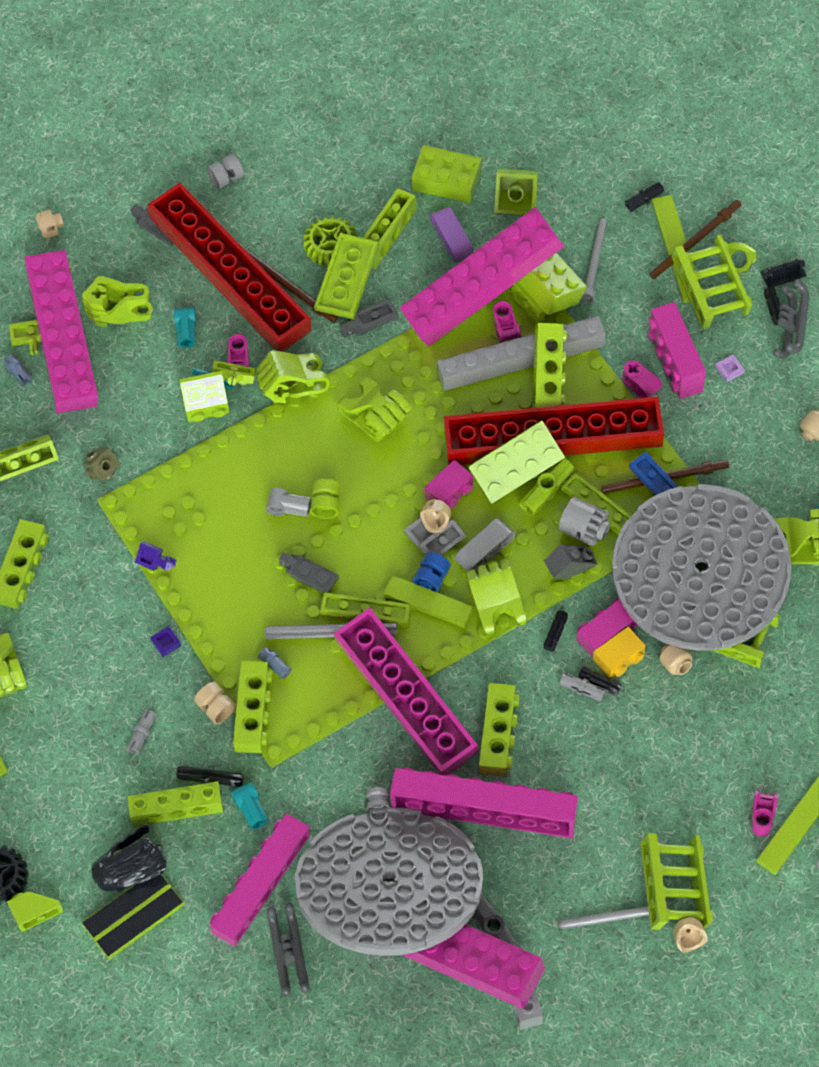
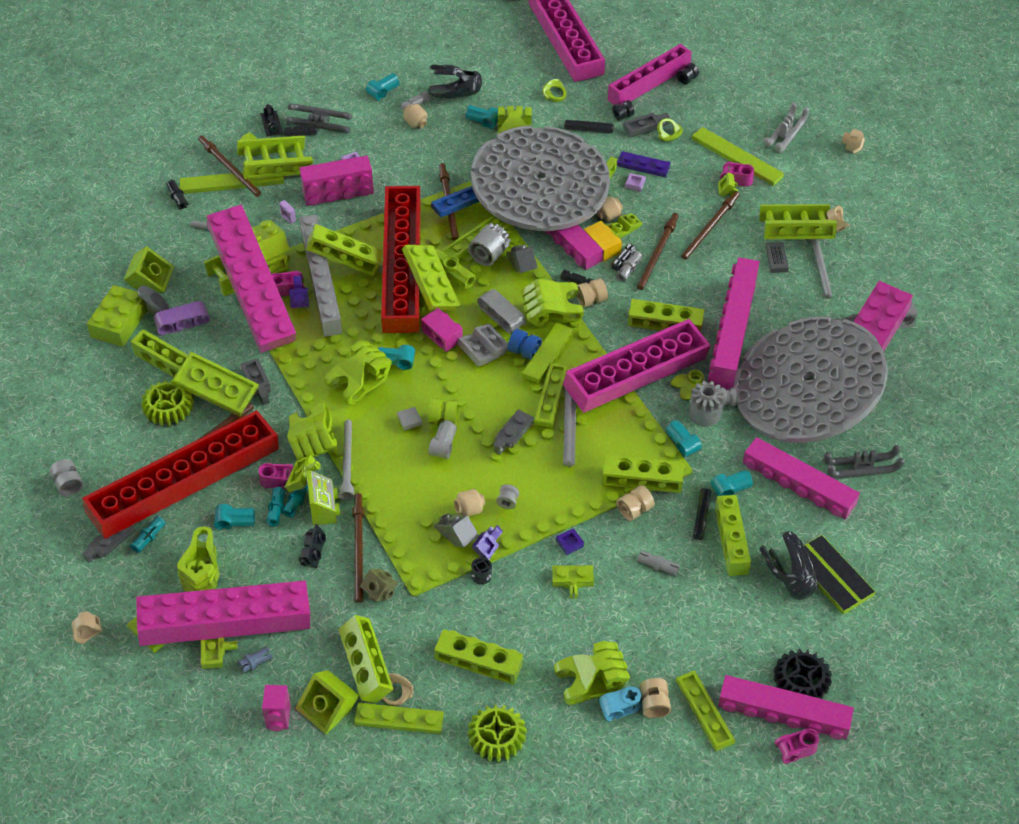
camera: 90 degrees left, 10 degrees down
(32, 909) = (836, 648): lime slope -> none
(121, 648) = (572, 577): none -> lime plate
(127, 561) = (483, 575): none -> black wheel
(151, 403) = (314, 540): none -> black hinge
(152, 250) = (155, 526): none -> teal pin
(168, 526) = (457, 529): none -> dark grey slope
(193, 436) = (358, 514): none -> reddish brown bar
(200, 361) = (275, 506): none -> teal pin
(202, 535) = (469, 502): none -> tan head
(213, 572) = (507, 496): none -> light grey wheel
(221, 420) = (346, 491): none -> light grey piece
(275, 662) = (597, 458): sand blue pin -> none
(307, 756) = (684, 441): none -> teal piece
(321, 468) = (409, 418): none -> light grey tile
(358, 773) = (706, 404): none -> light grey gear
(397, 758) = (687, 383): none -> lime plate
(405, 451) = (401, 357): none -> teal piece
(434, 514) = (472, 331): tan piece -> none
(466, 200) = (153, 300): none -> dark grey cap
(486, 334) = (299, 295): none -> dark purple plate
(527, 643) = (591, 292): none -> tan wheel
(619, 862) = (776, 257): none -> dark grey tile
(627, 310) = (287, 212): none -> lavender tile
(640, 381) = (356, 209): dark pink piece -> none
(652, 678) = (625, 225): none -> lime slope
(657, 732) = (668, 229): none -> reddish brown bar
(709, 803) = (726, 205): none -> reddish brown bar
(737, 690) = (635, 182): none -> lavender tile
(740, 799) = (727, 185): none -> lime tile
(772, 699) = (643, 164): none -> dark purple plate

